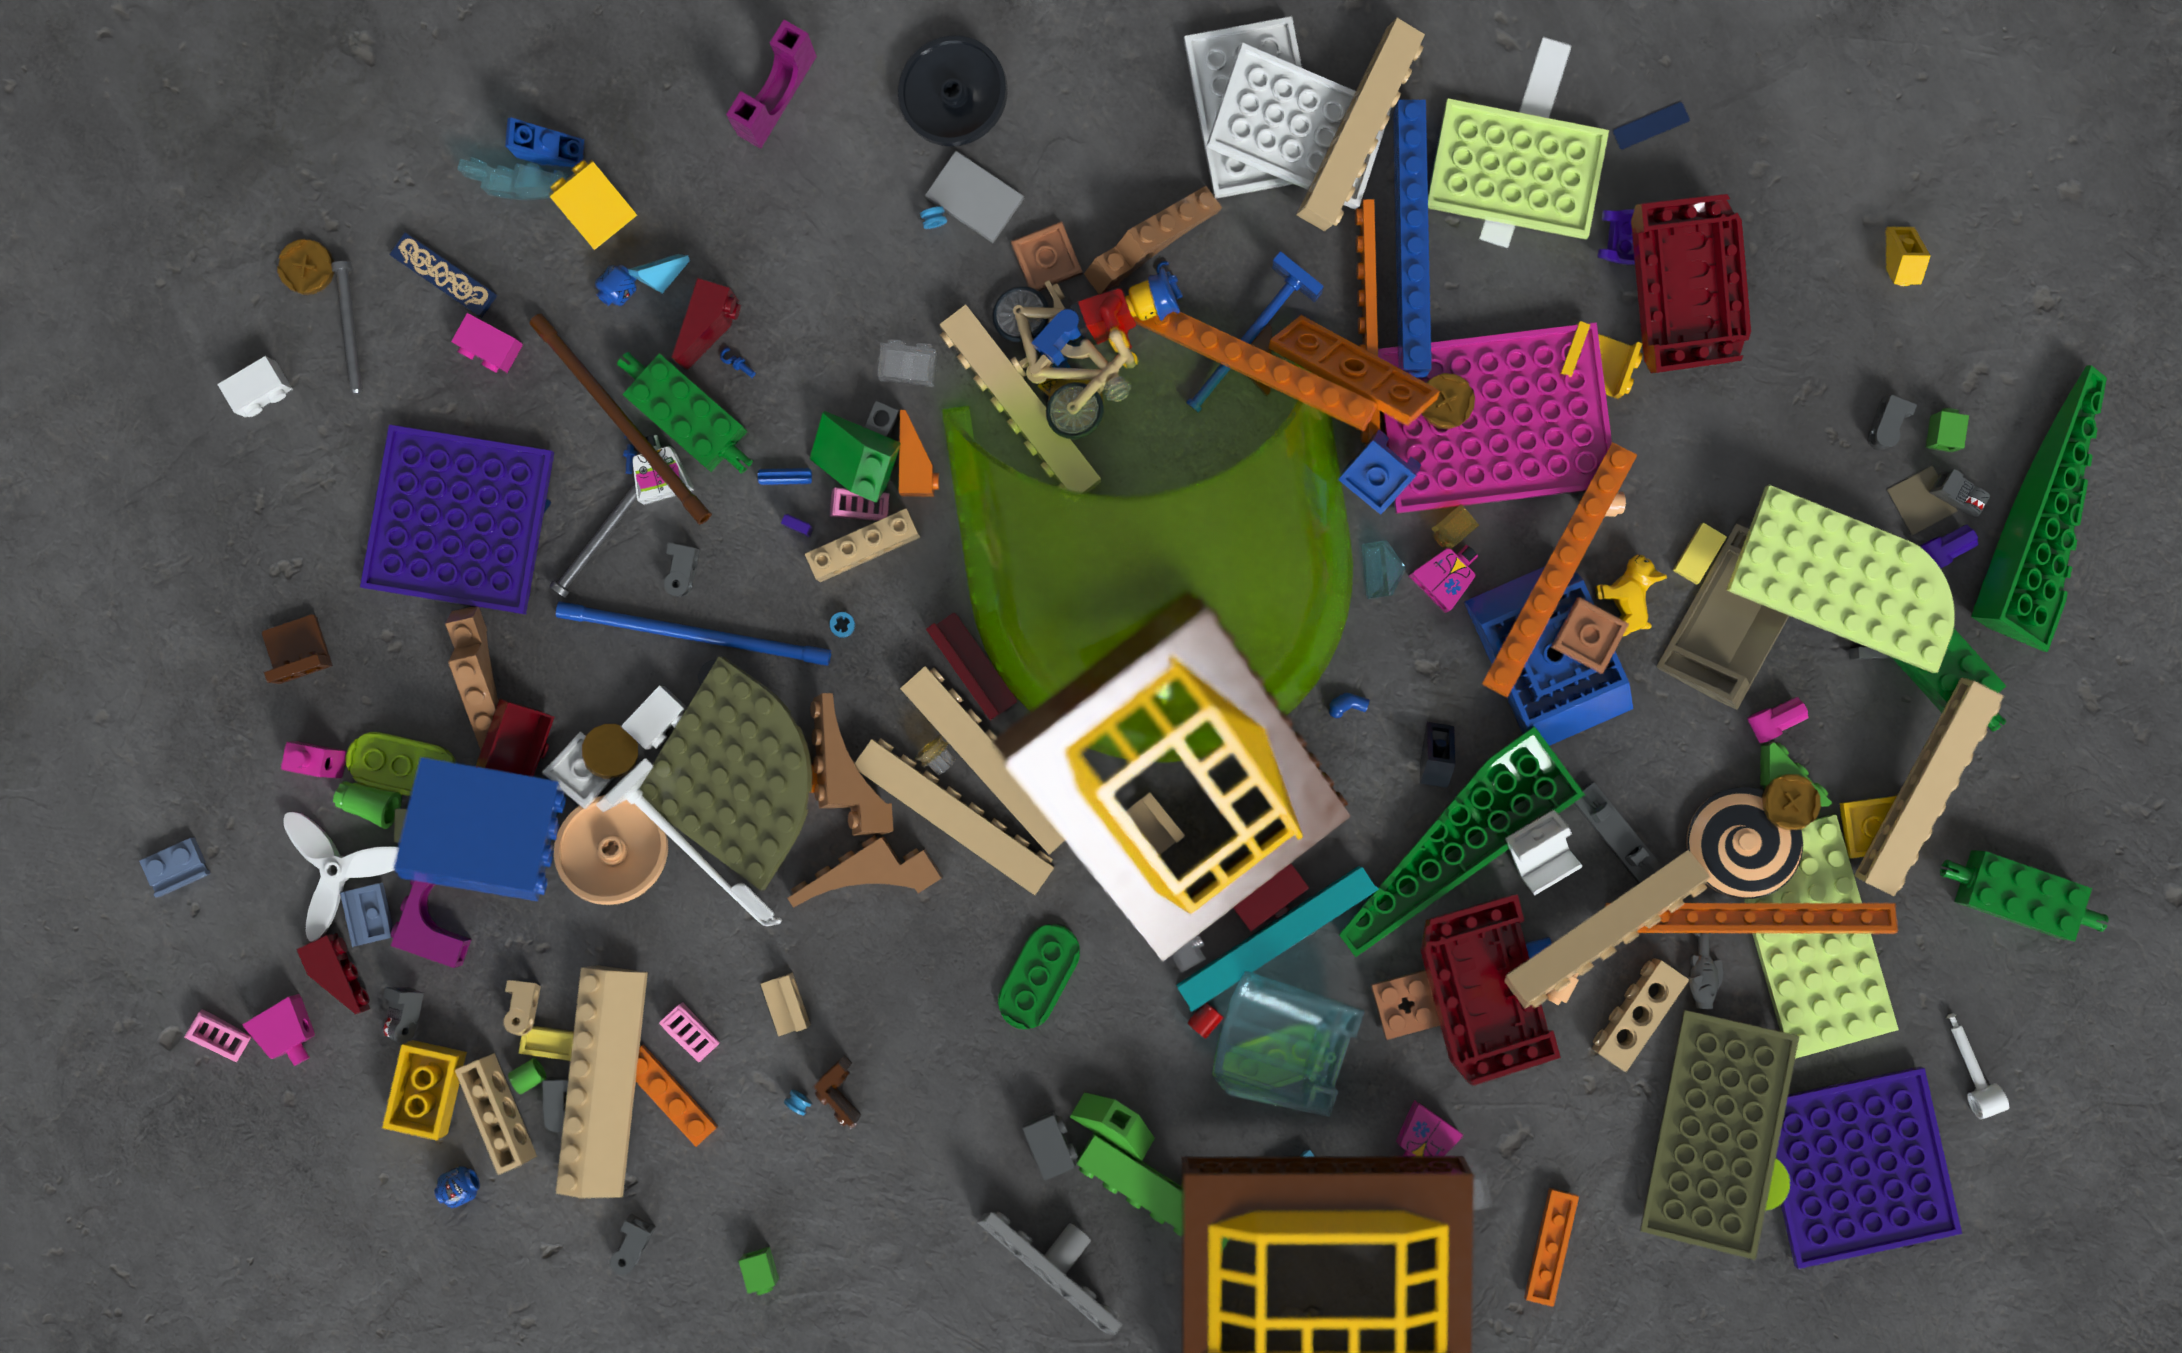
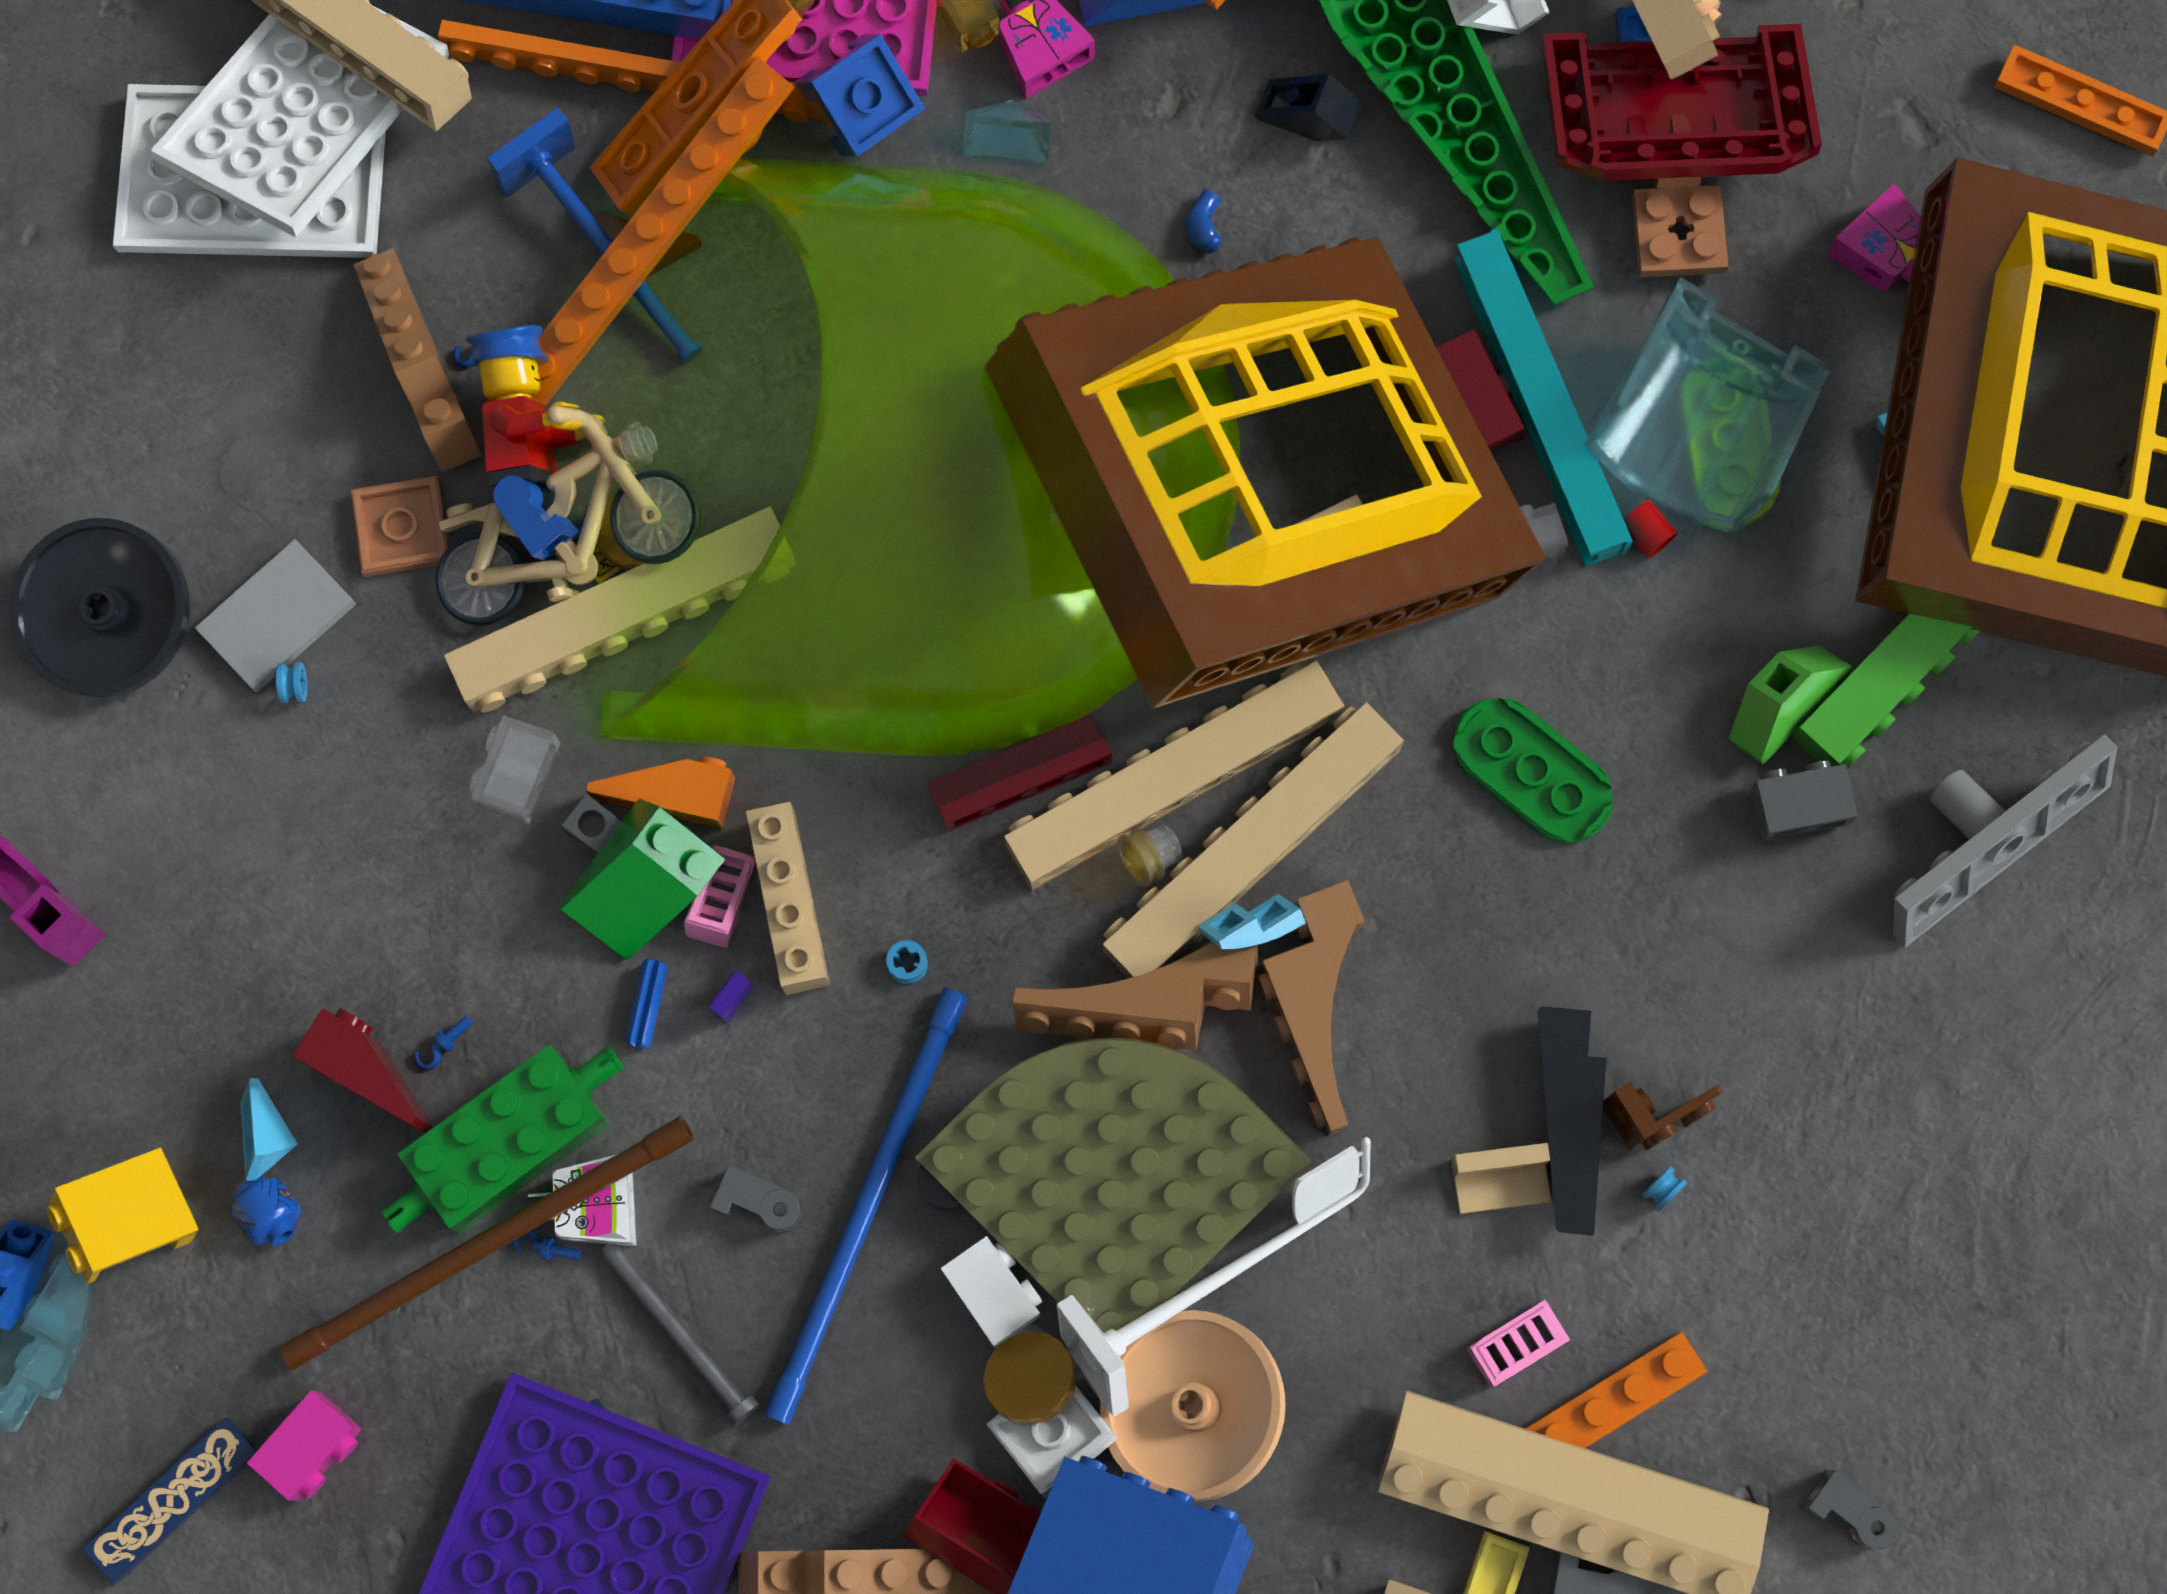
camera: 75 degrees left, 10 degrees down
(759, 1271) = (1927, 1307): bright green brick -> none
(829, 1040) = (1573, 1114): none -> black wedge
(896, 821) = (1240, 929): none -> medium azure slope

